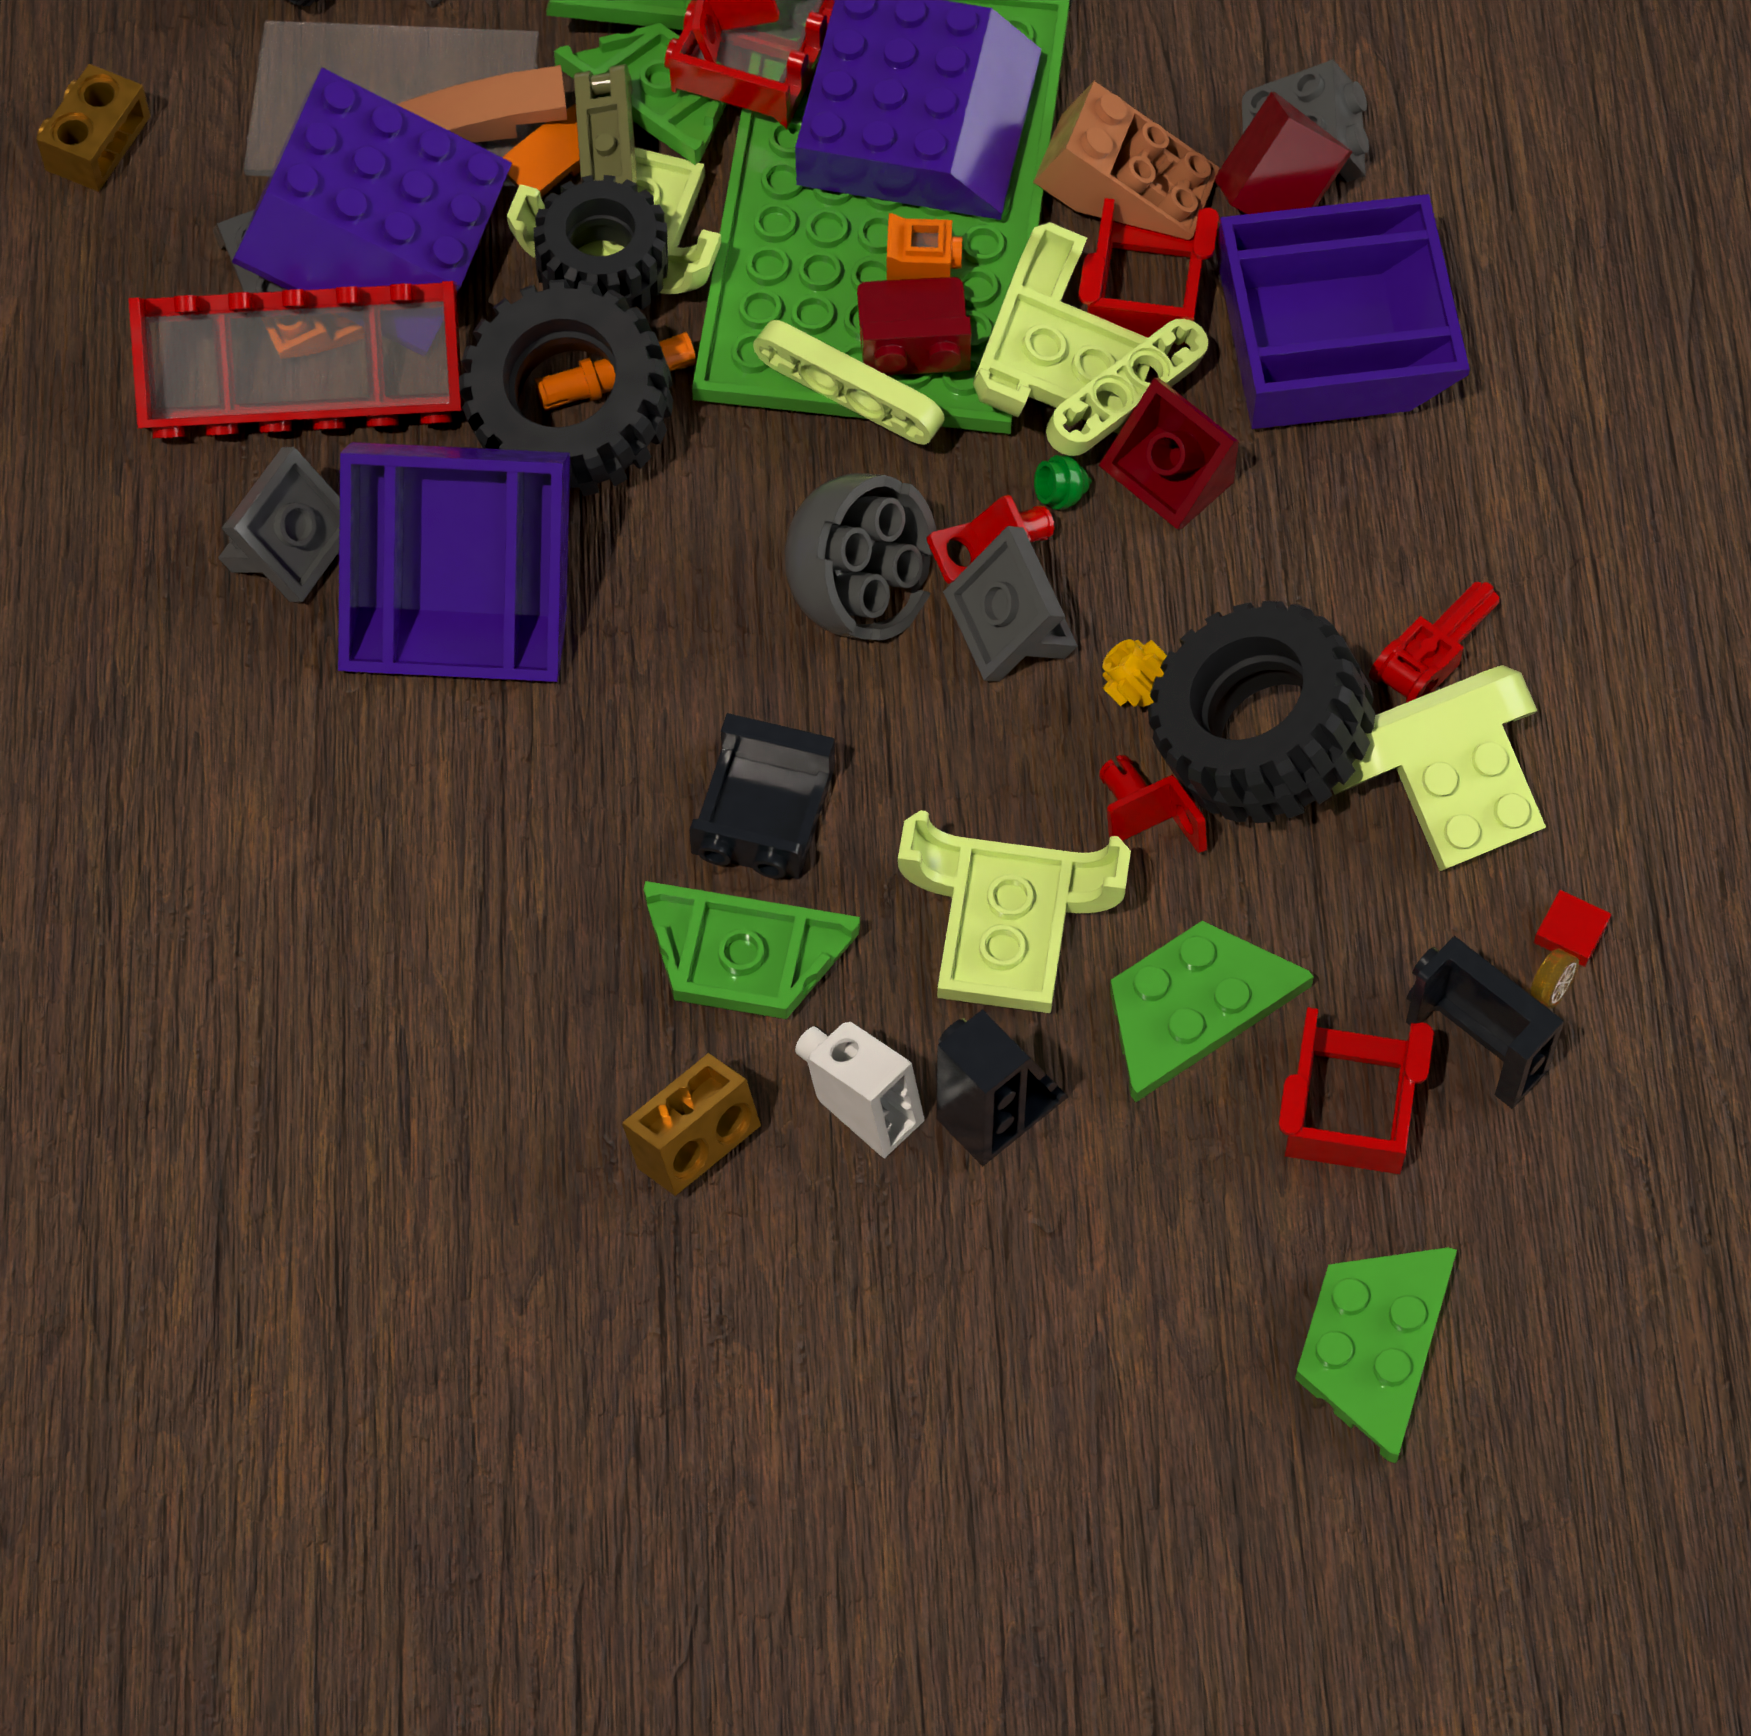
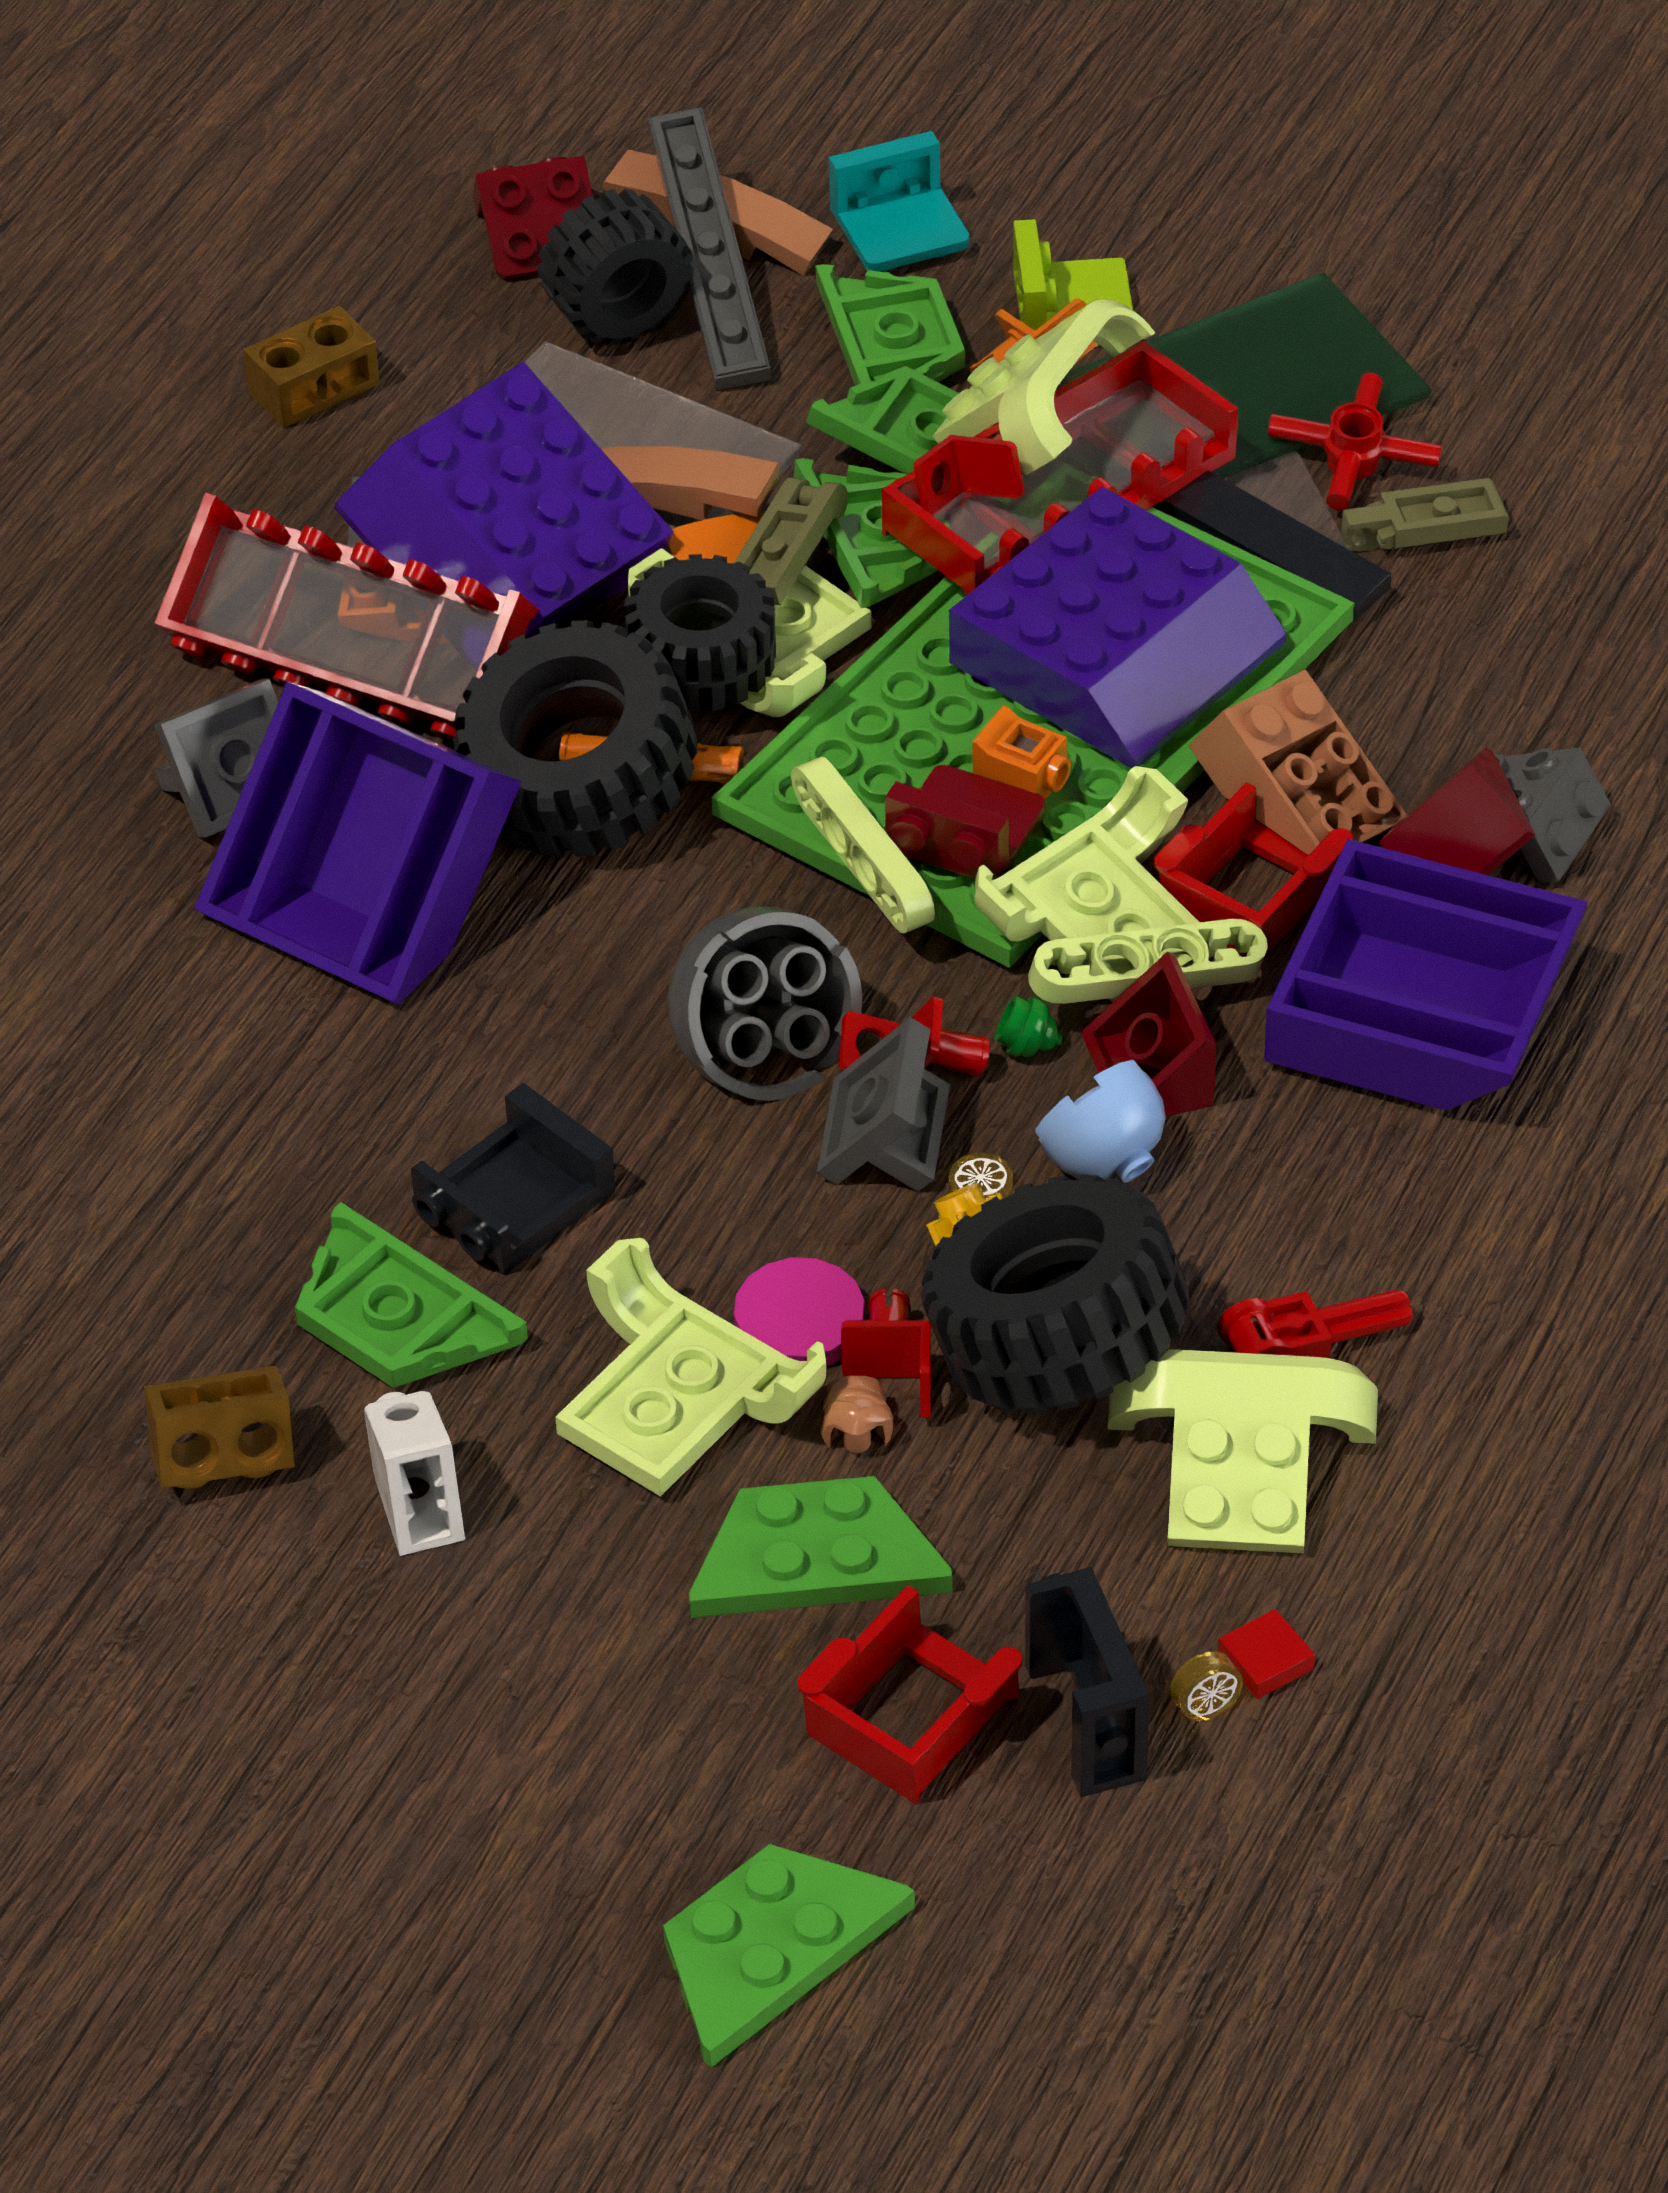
camera: 30 degrees right, 15 degrees down
(989, 1087) = (535, 1511): black wedge -> none
(1051, 804) = (797, 1304): none -> dark pink tile
(1110, 626) = (983, 1168): none -> clear yellow tile
(1154, 874) = (856, 1408): none -> nougat arm
(1188, 545) = (1107, 1127): none -> light blue cylinder

